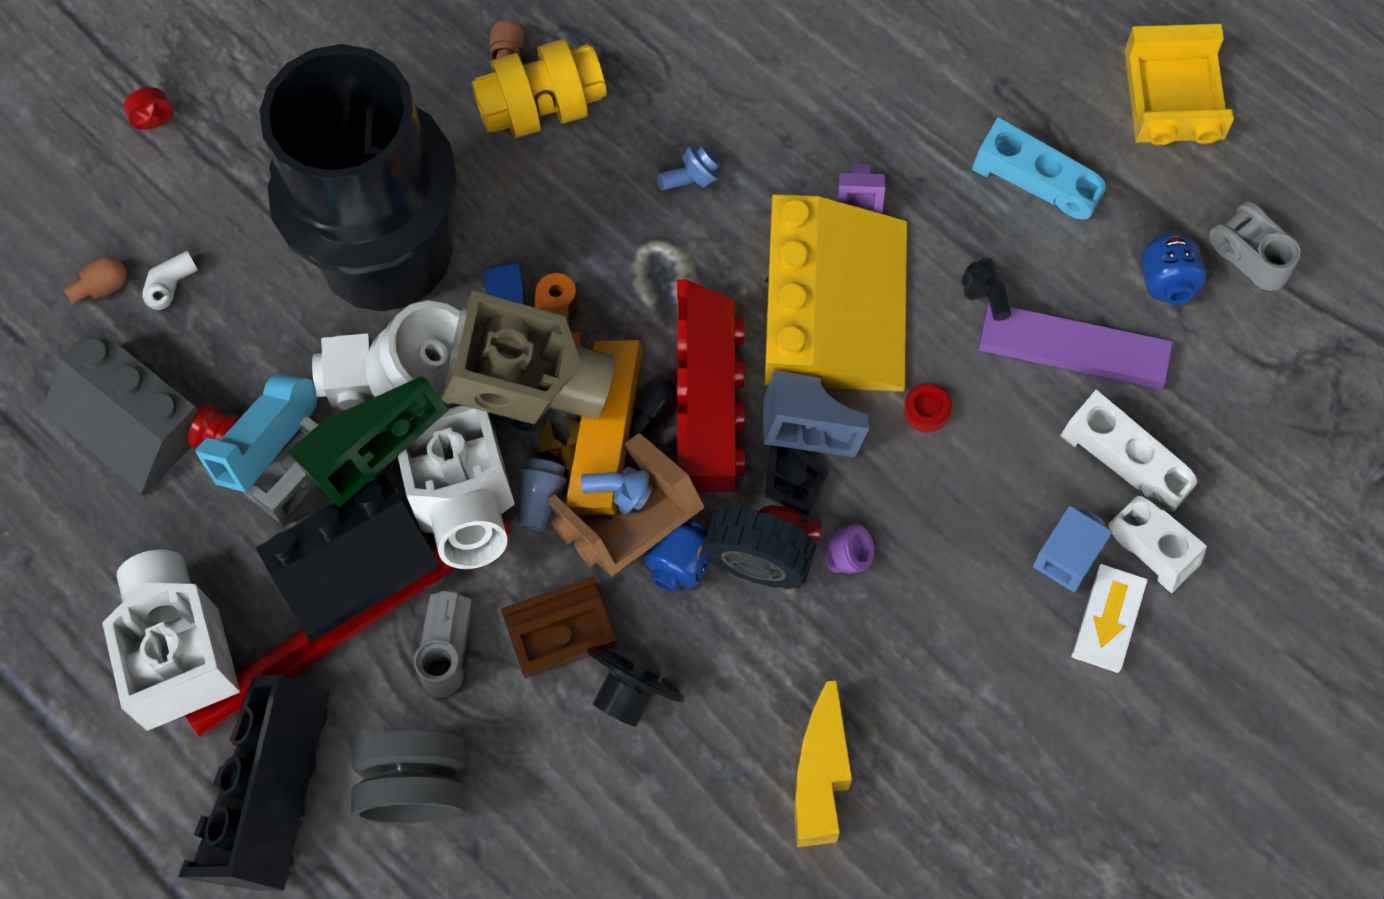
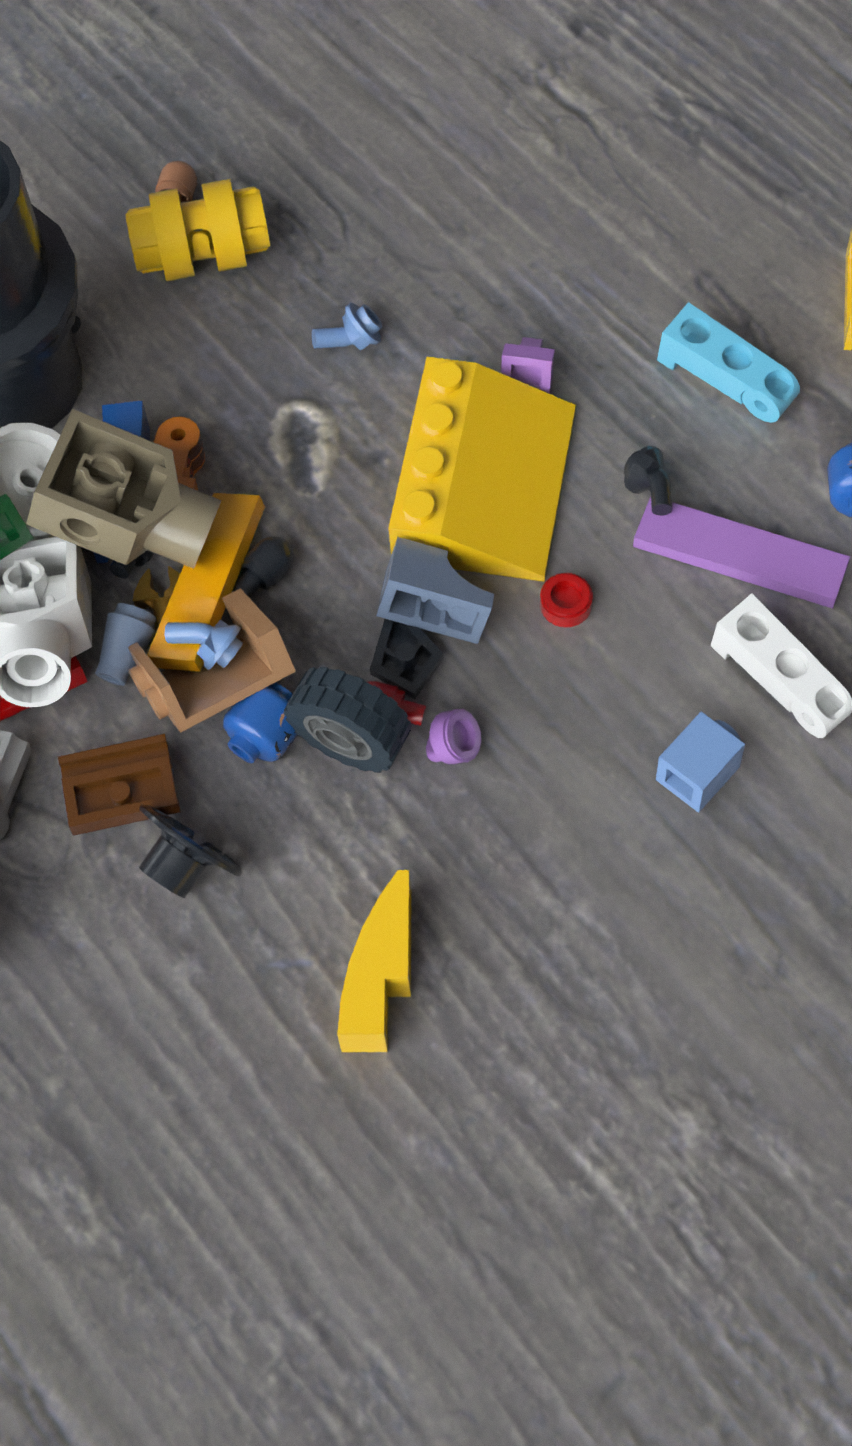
camera: 10 degrees right, 5 degrees down
(707, 388) = (324, 551): red wedge -> none
(1109, 618) = (733, 844): white tile -> none
(1158, 541) = (801, 767): white leg -> none

